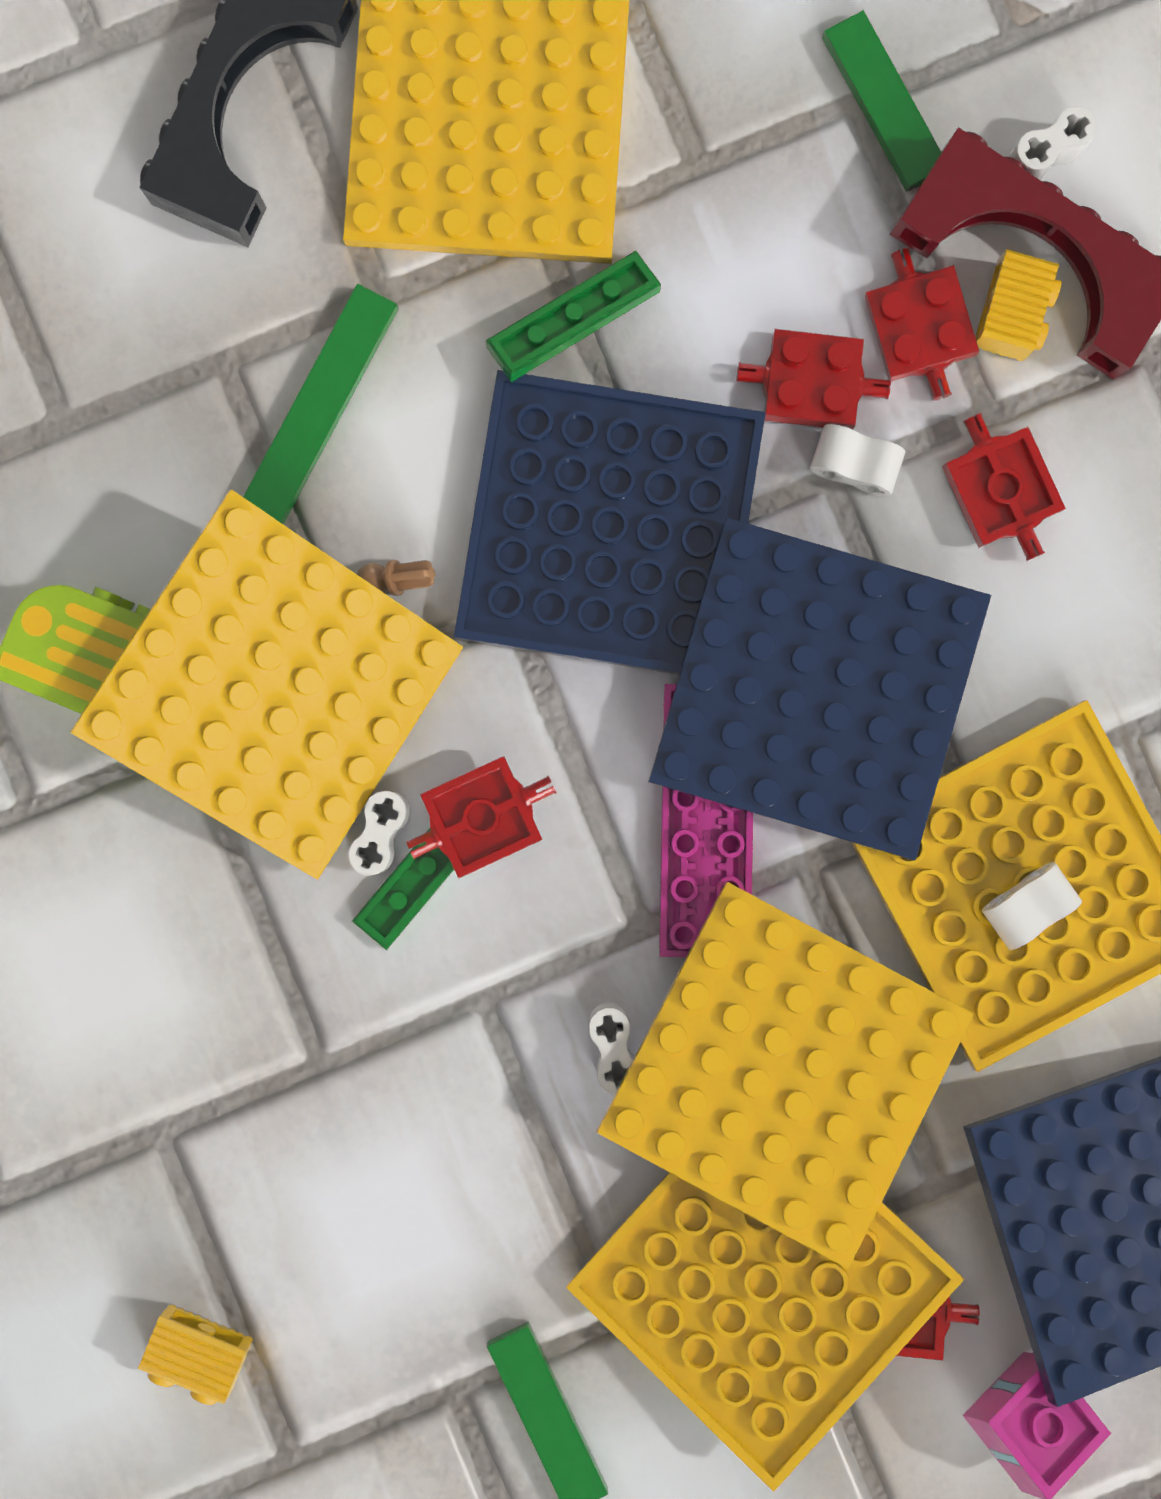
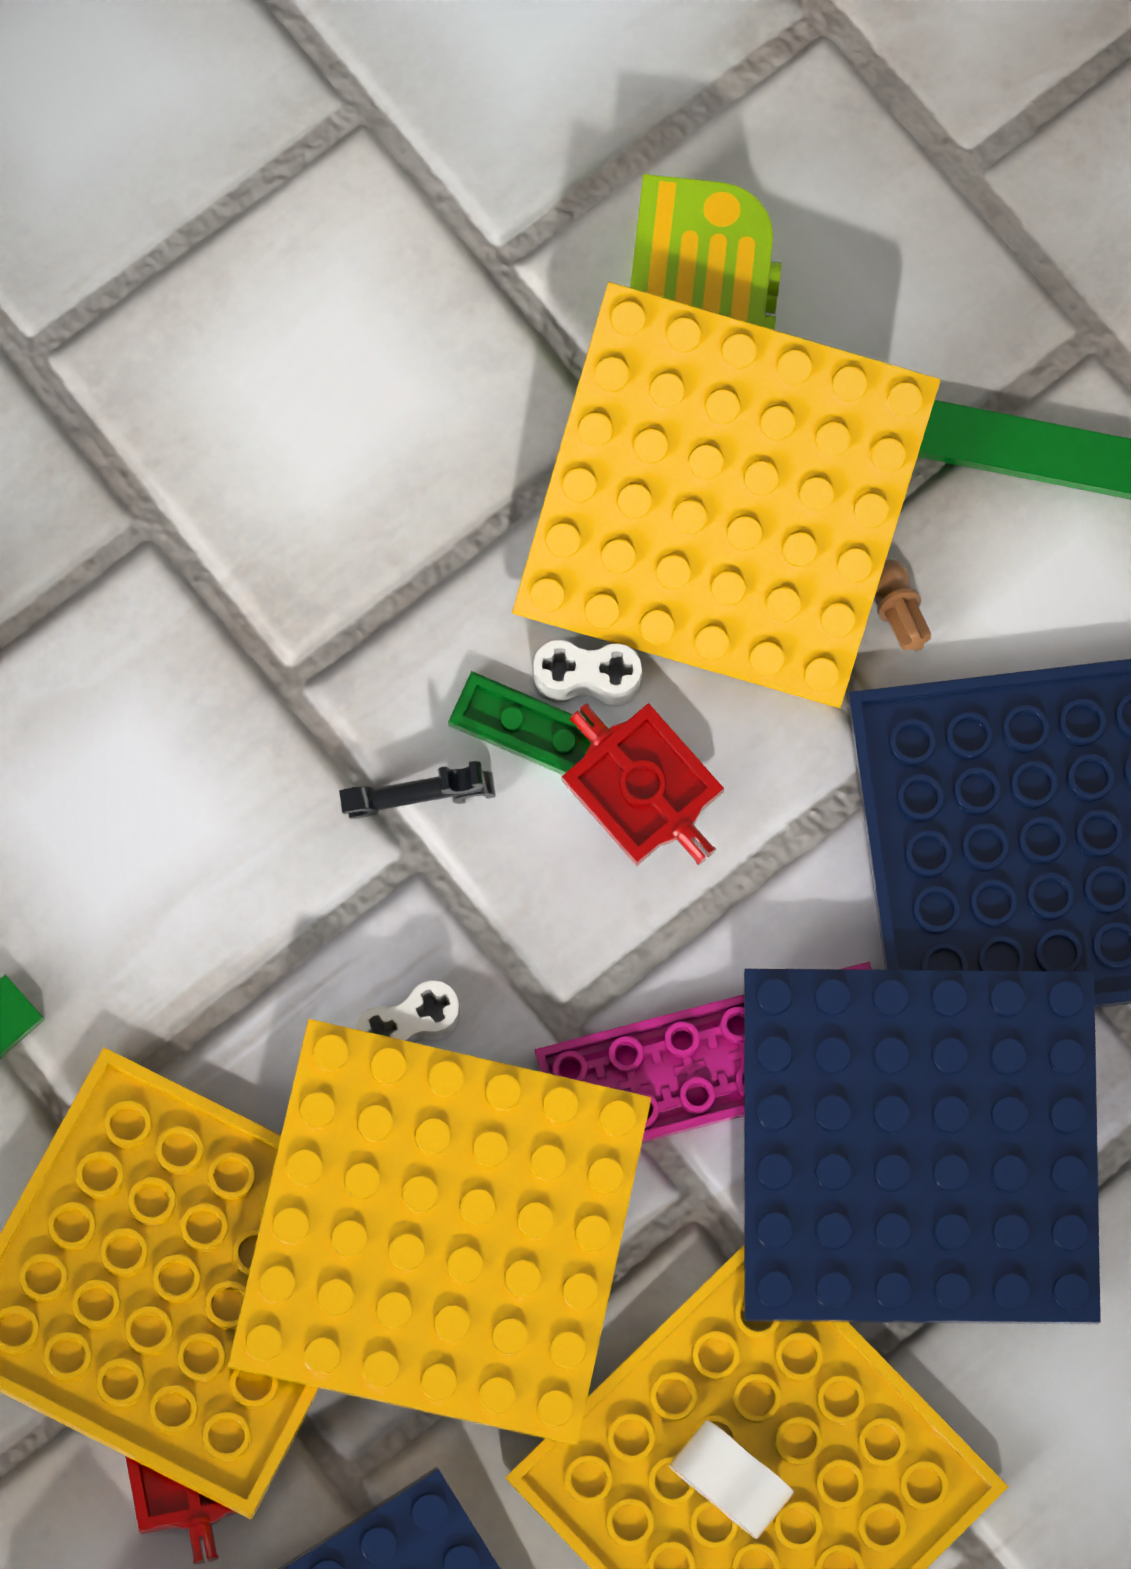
camera: 75 degrees right, 10 degrees down
(437, 970) = (453, 783): none -> black bar

